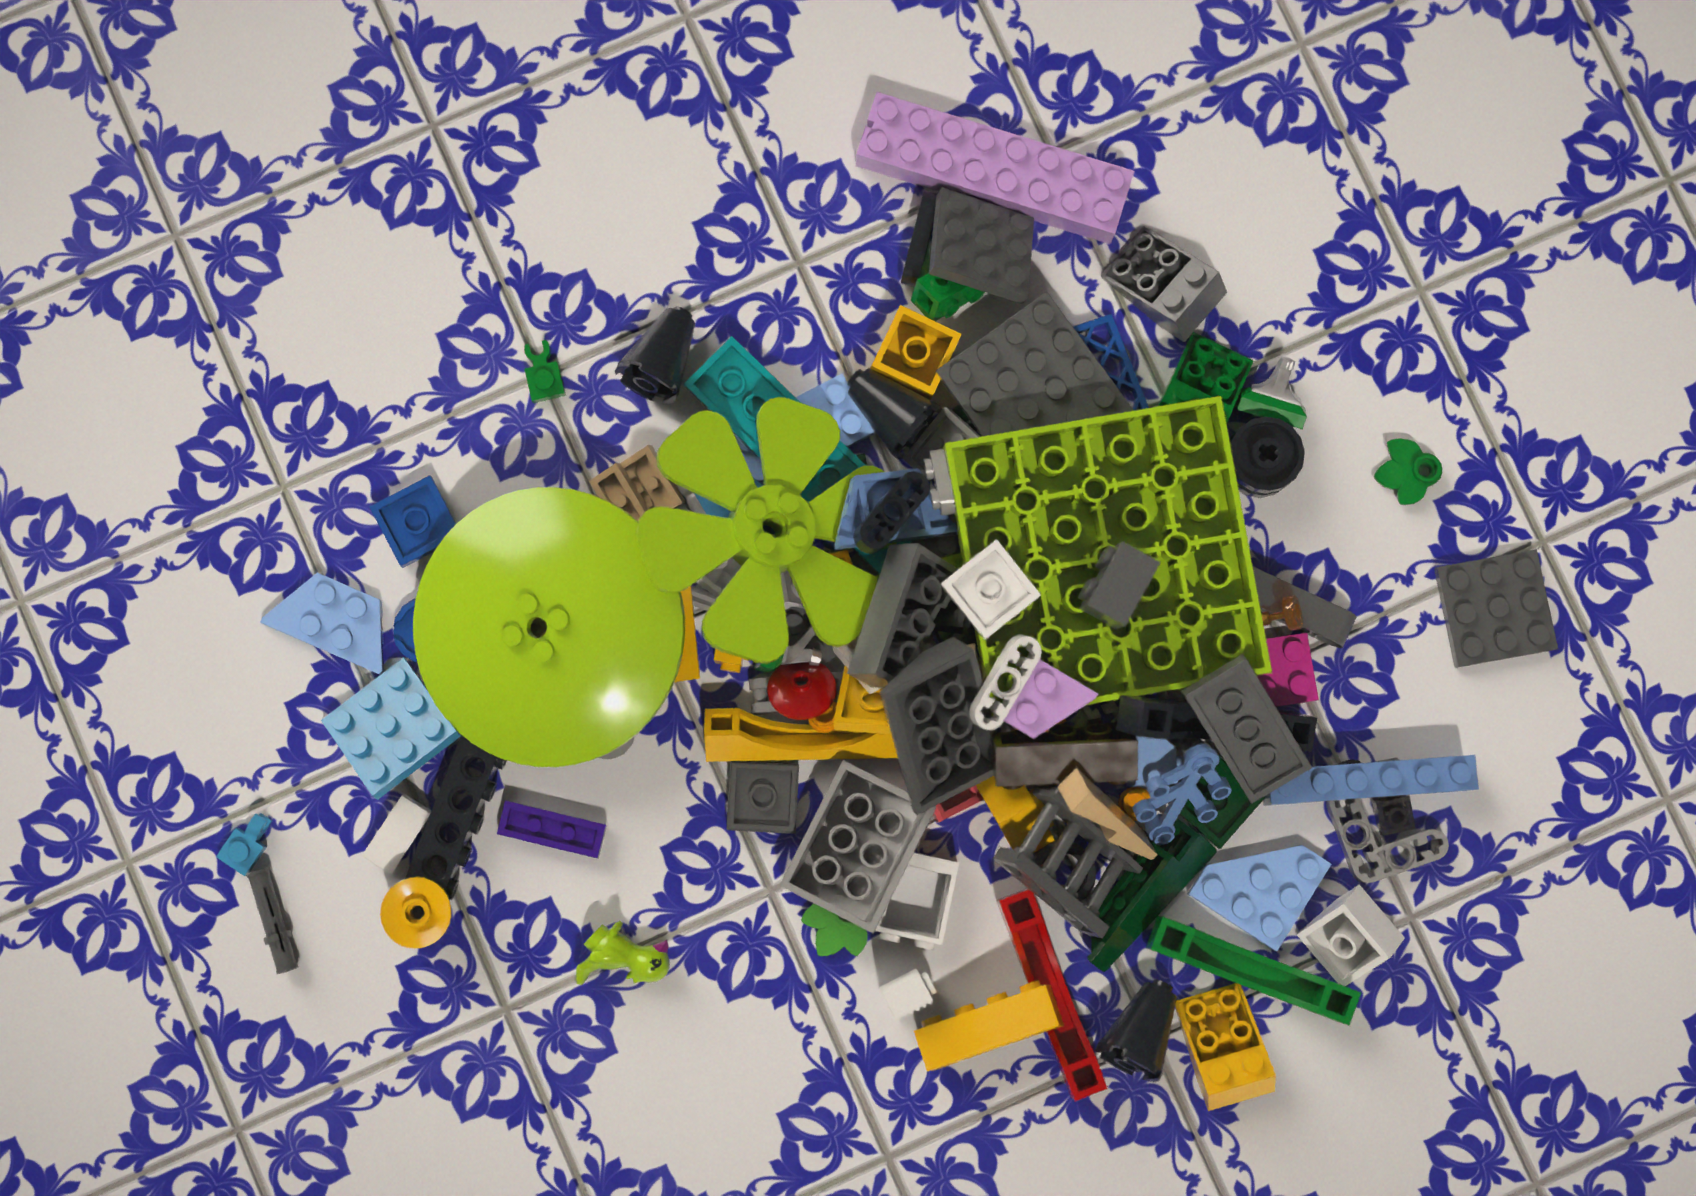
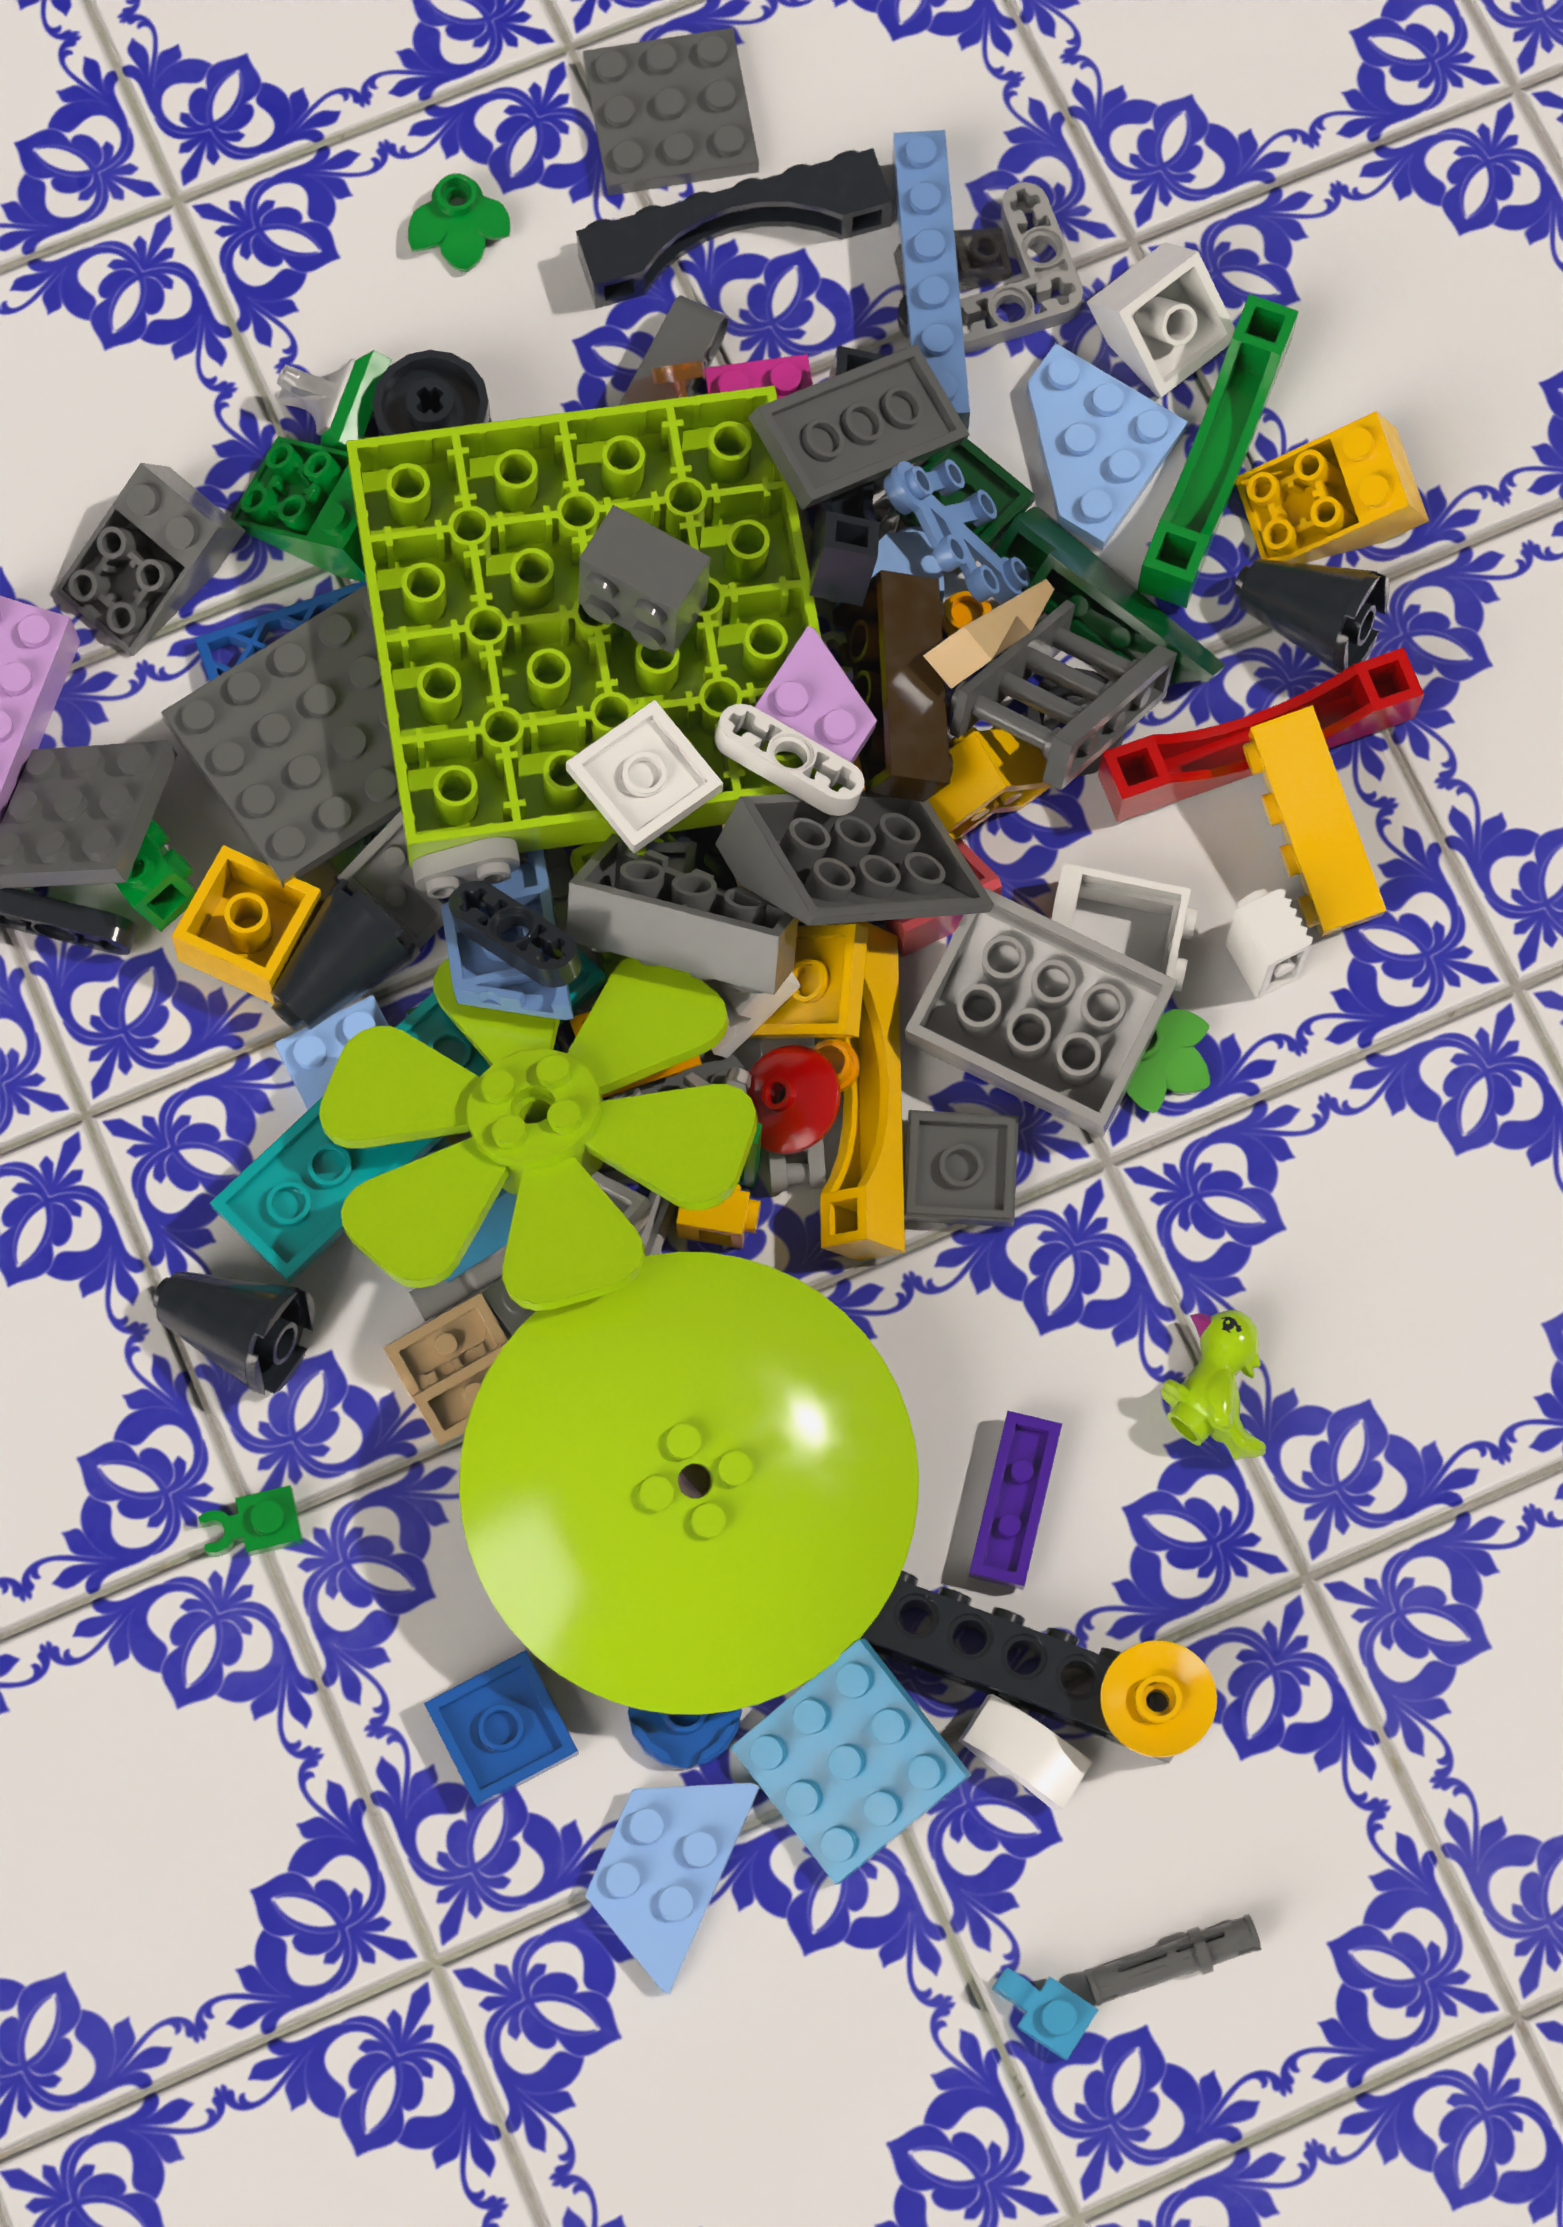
camera: 85 degrees left, 10 degrees down
(1432, 717) = (830, 197): none -> black arch

